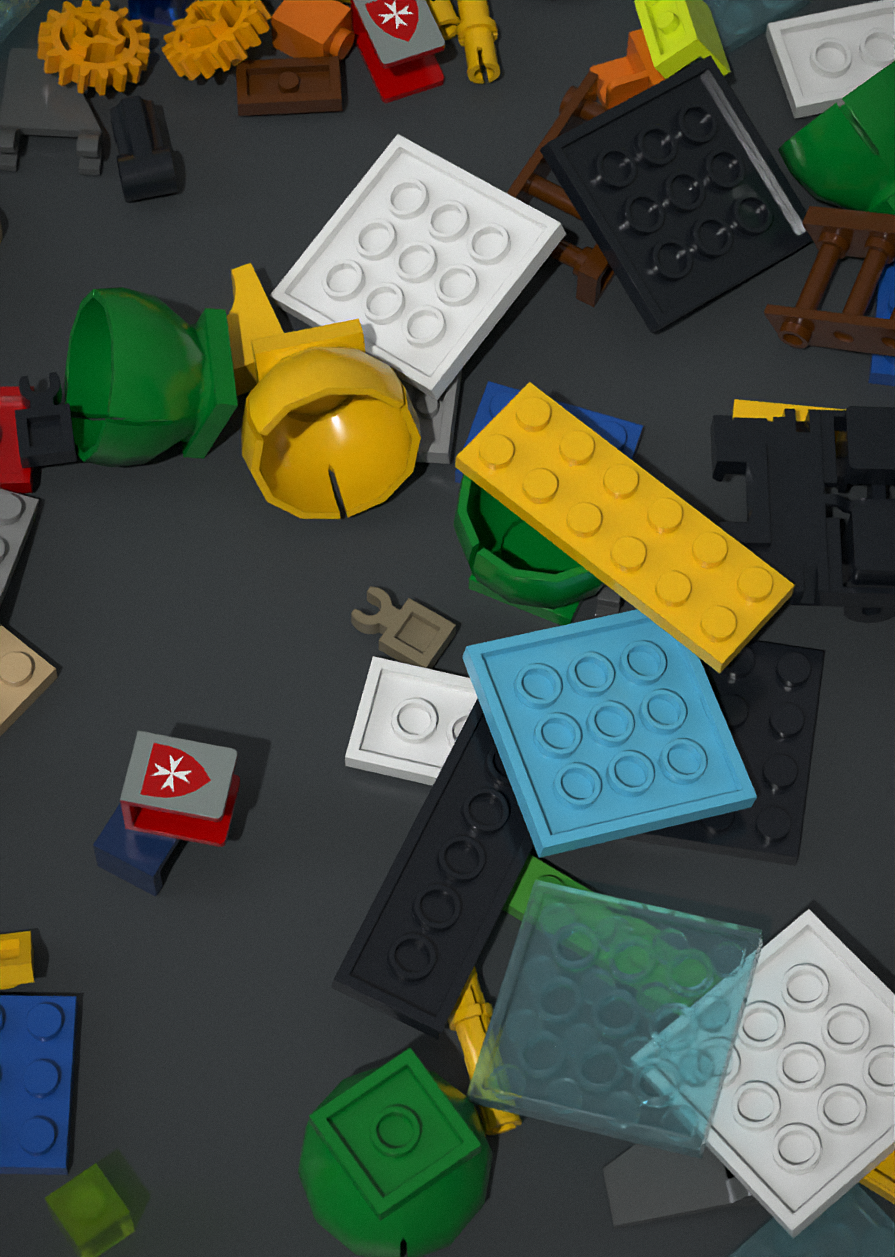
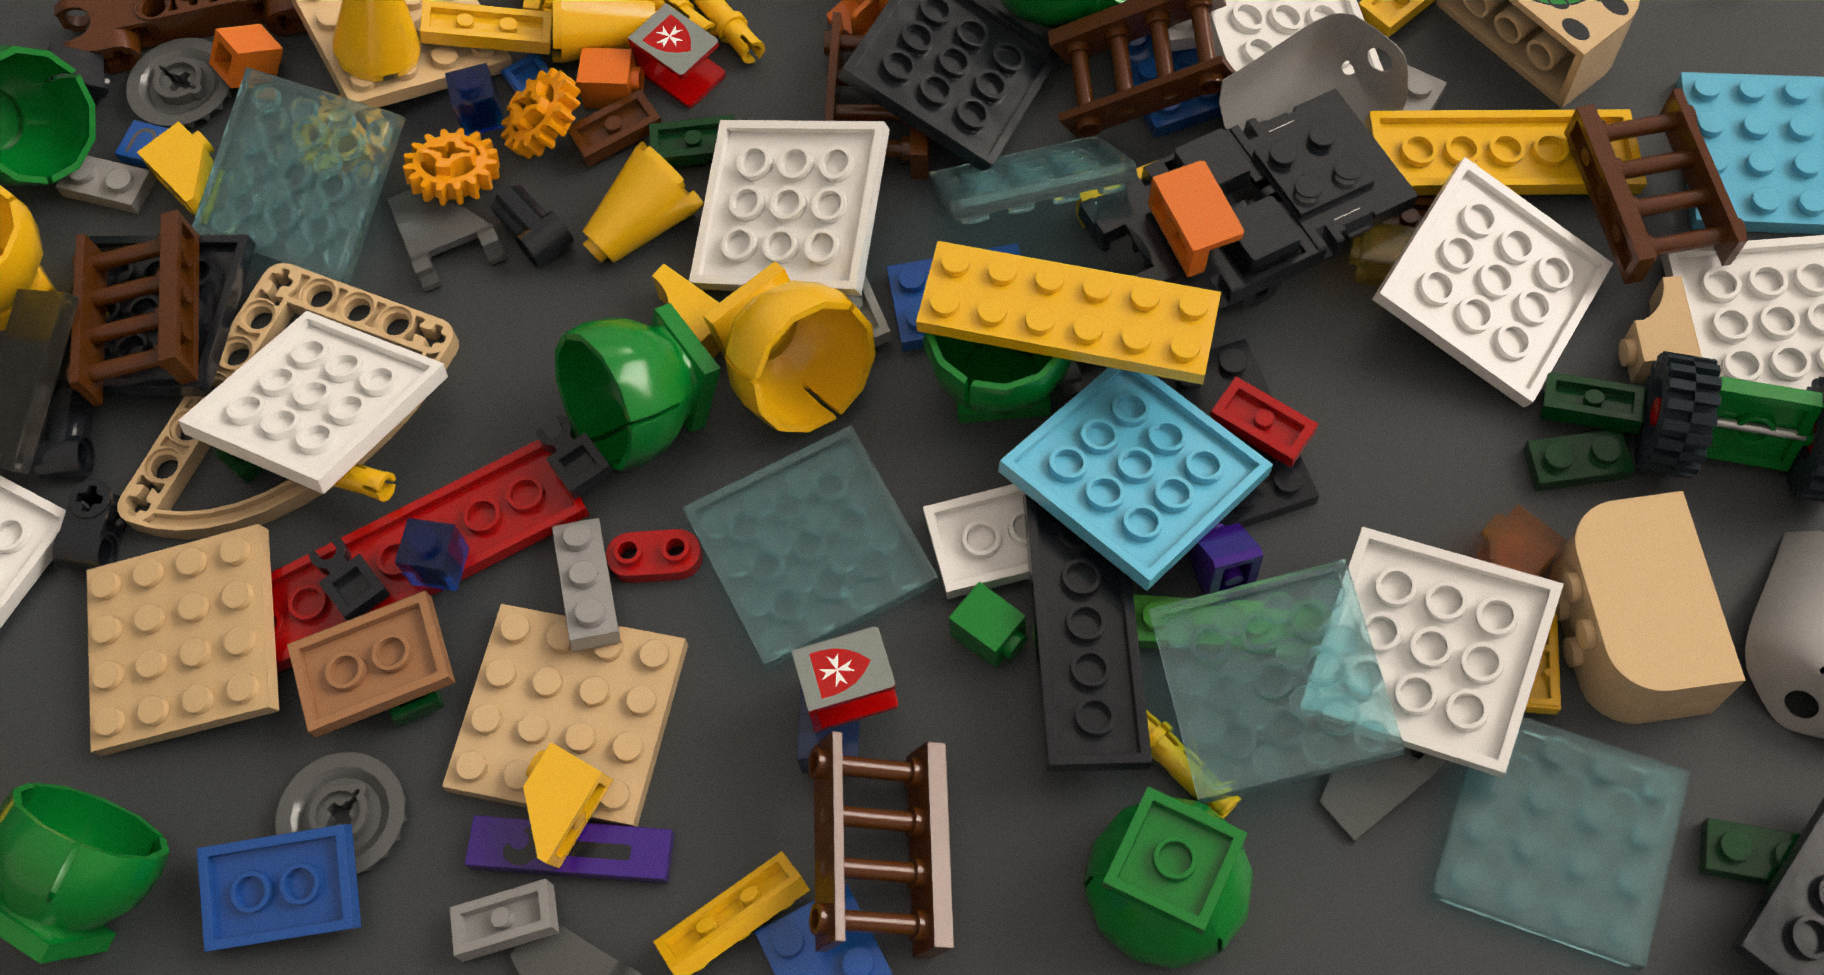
camera: 20 degrees left, 0 degrees up
(69, 568) = (652, 557): none -> red plate
(184, 976) = (924, 823): none -> reddish brown fence
(236, 637) = (810, 546): none -> clear light blue plate
(261, 187) = (639, 206): none -> yellow cone
(353, 136) = (686, 140): none -> dark green plate
(368, 813) = (988, 626): none -> green brick
(409, 634) = (939, 476): dark tan plate -> none
(650, 868) = (1226, 558): none -> dark purple slope
(685, 361) = (1031, 177): none -> clear light blue plate
(779, 748) = (1264, 421): none -> red plate
(818, 486) = (1193, 214): none -> orange panel

